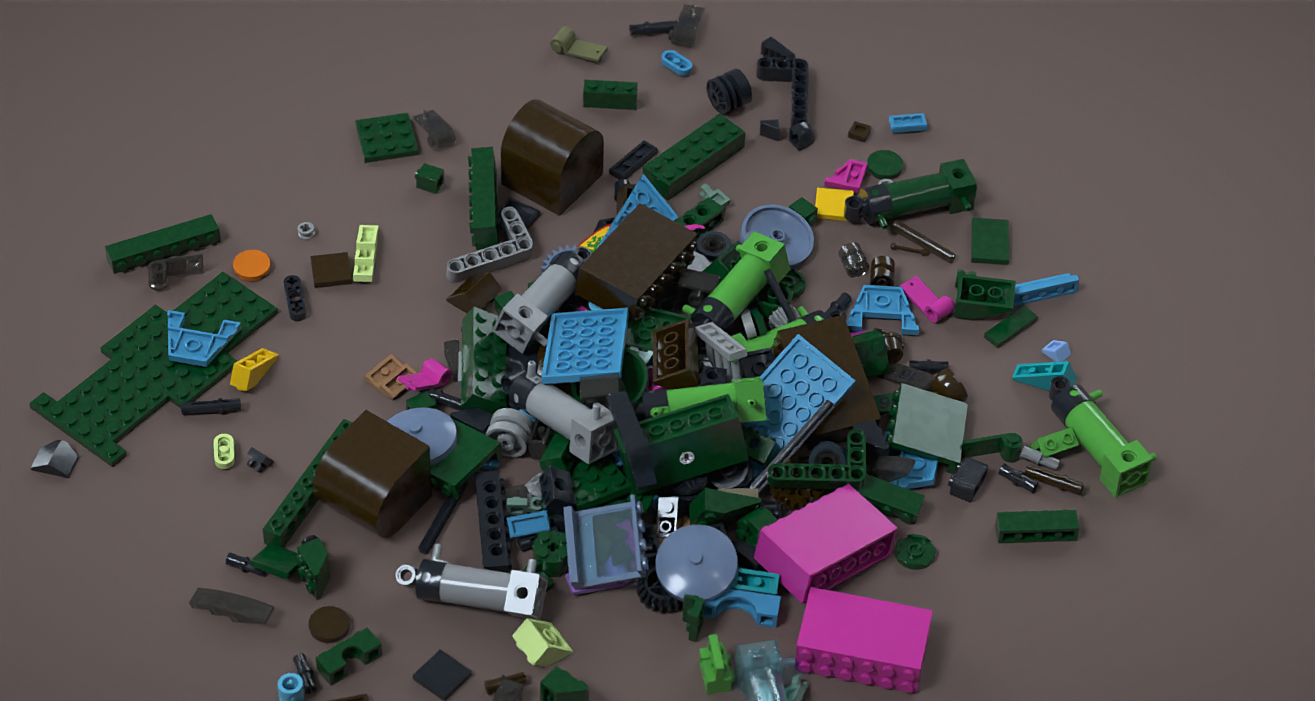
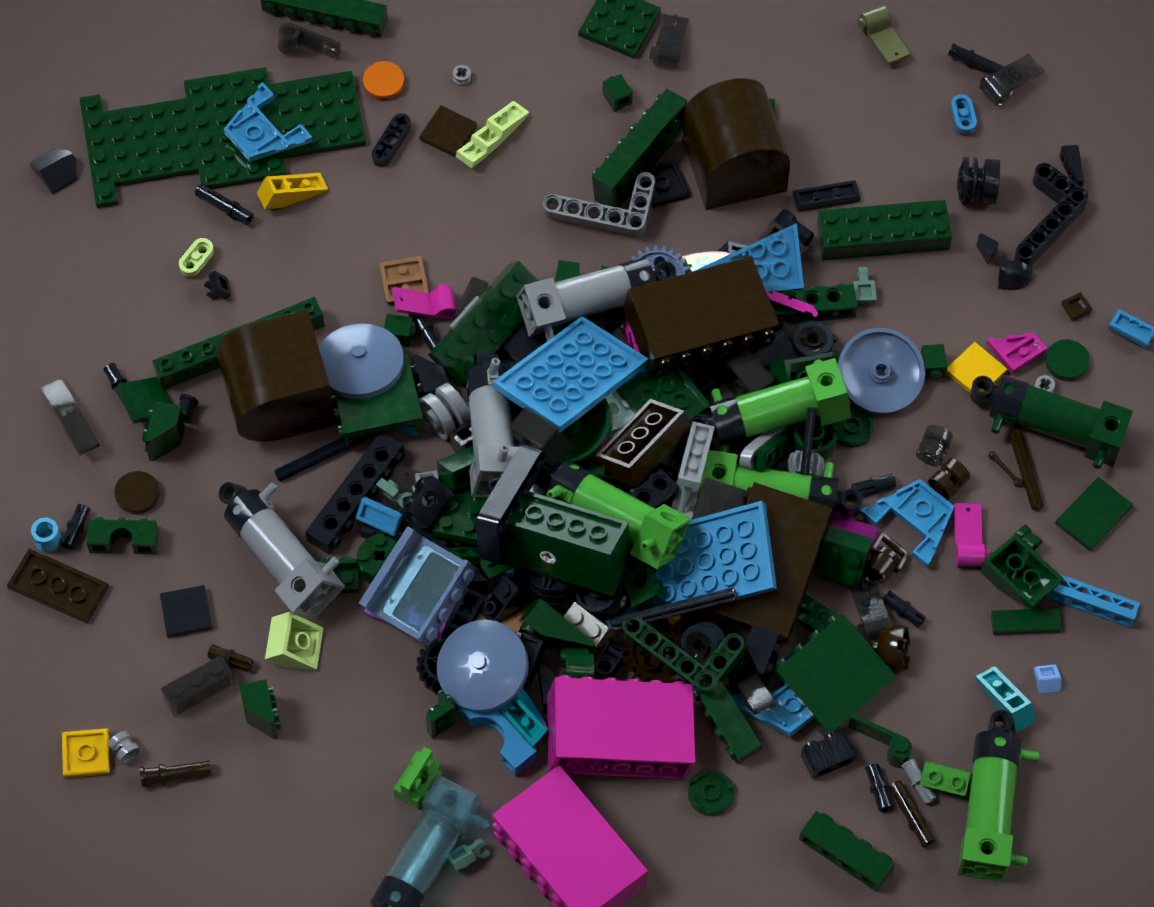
camera: 40 degrees right, 15 degrees up
(475, 292) = (550, 243): dark brown slope -> none
(610, 94) = (865, 109): dark green brick -> none

